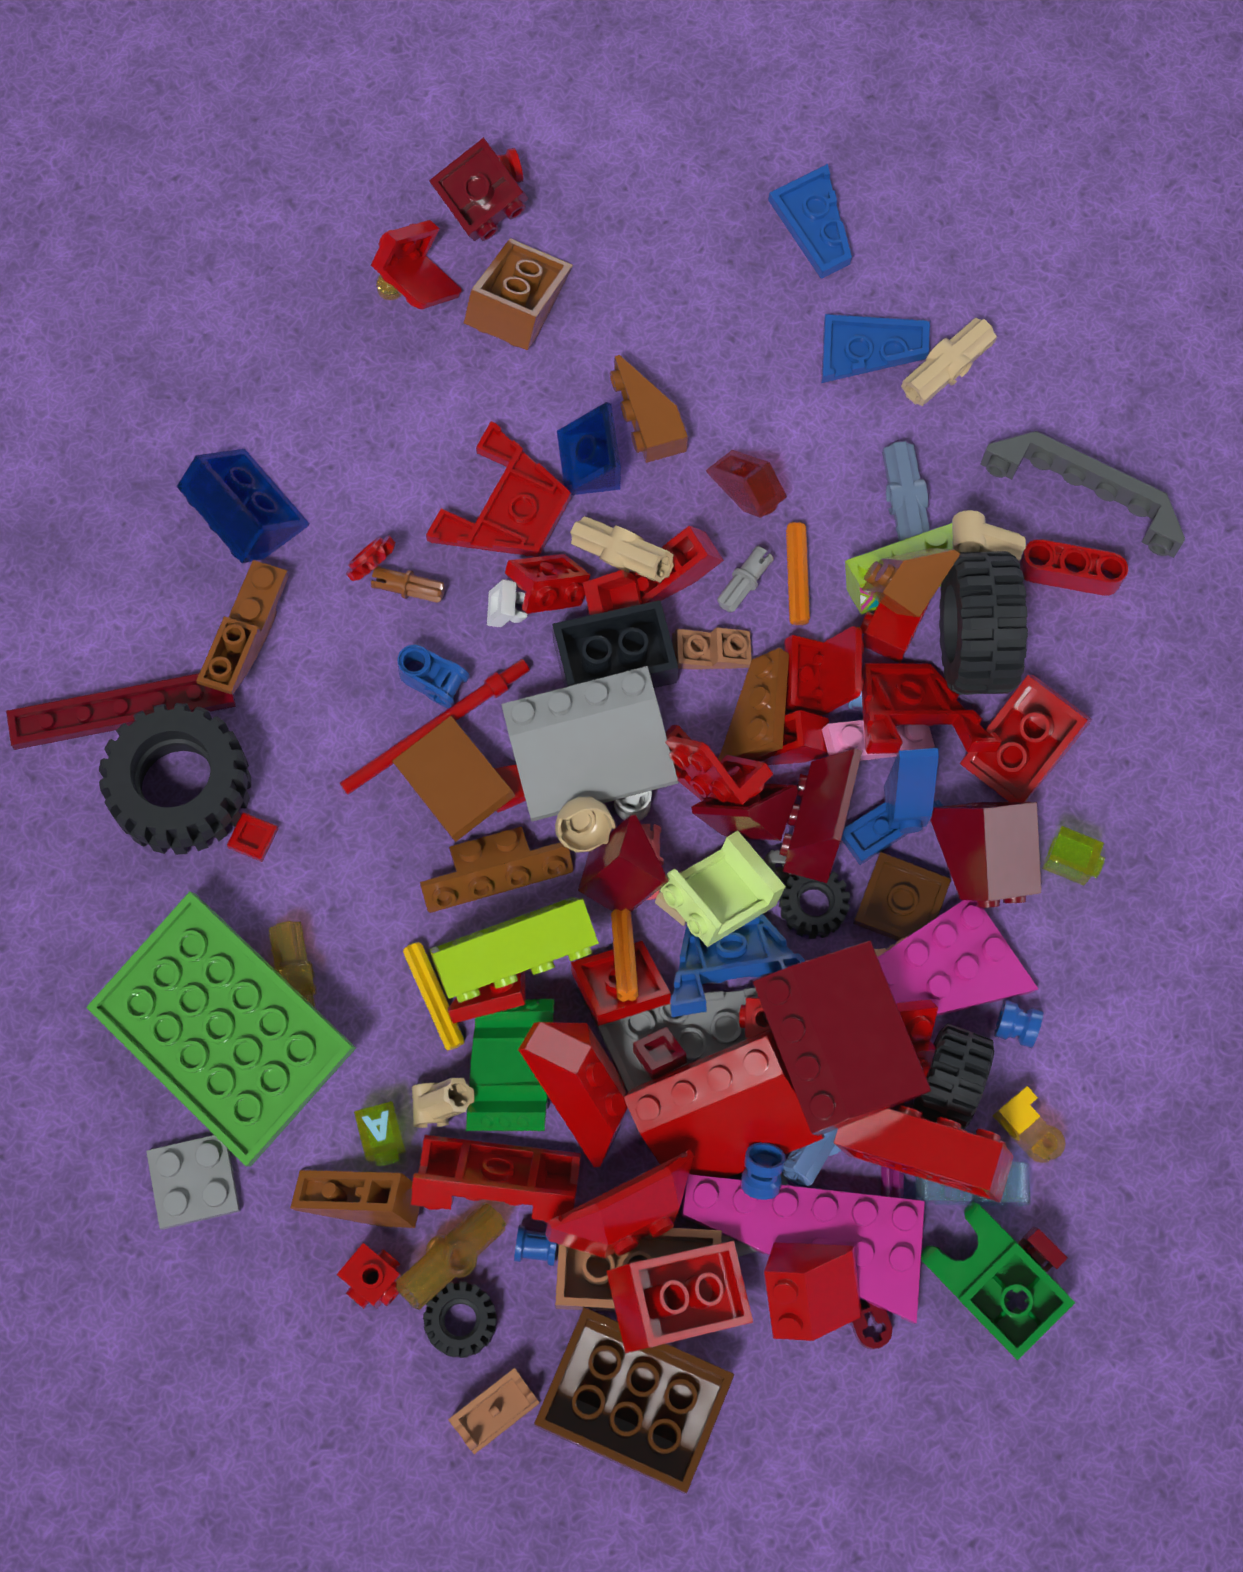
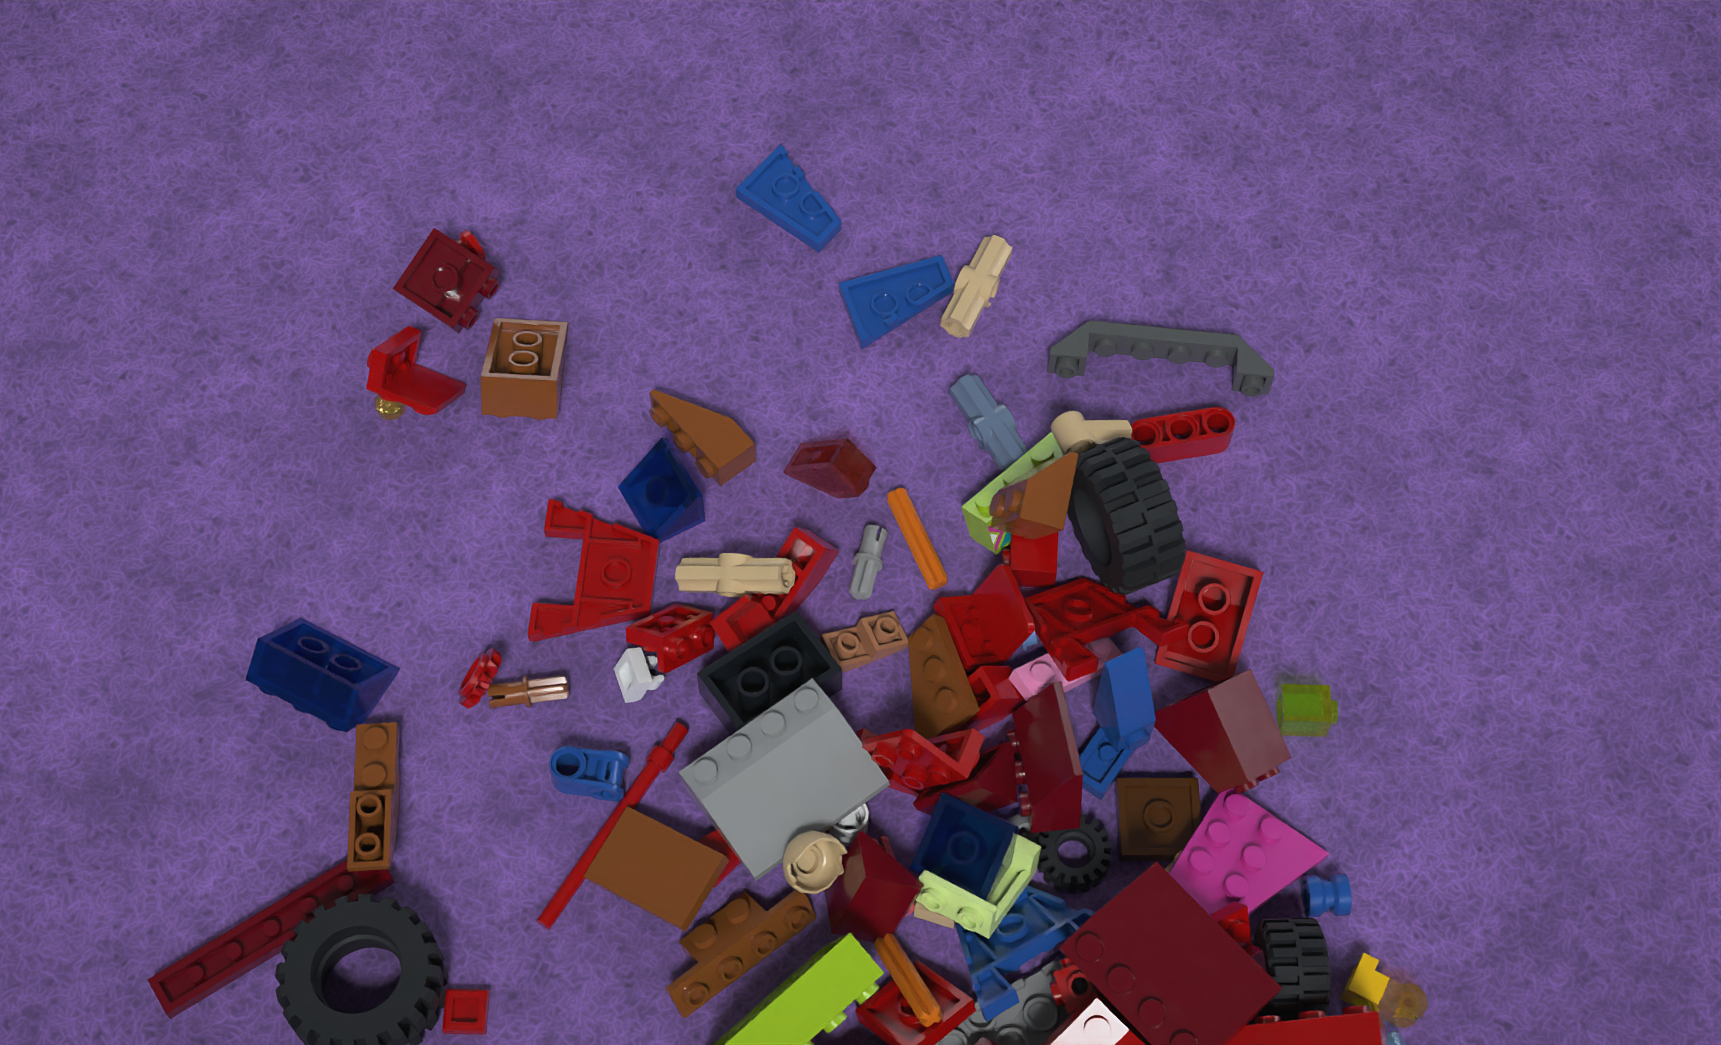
camera: 20 degrees left, 10 degrees down
(719, 863) = (966, 846): none -> clear blue slope

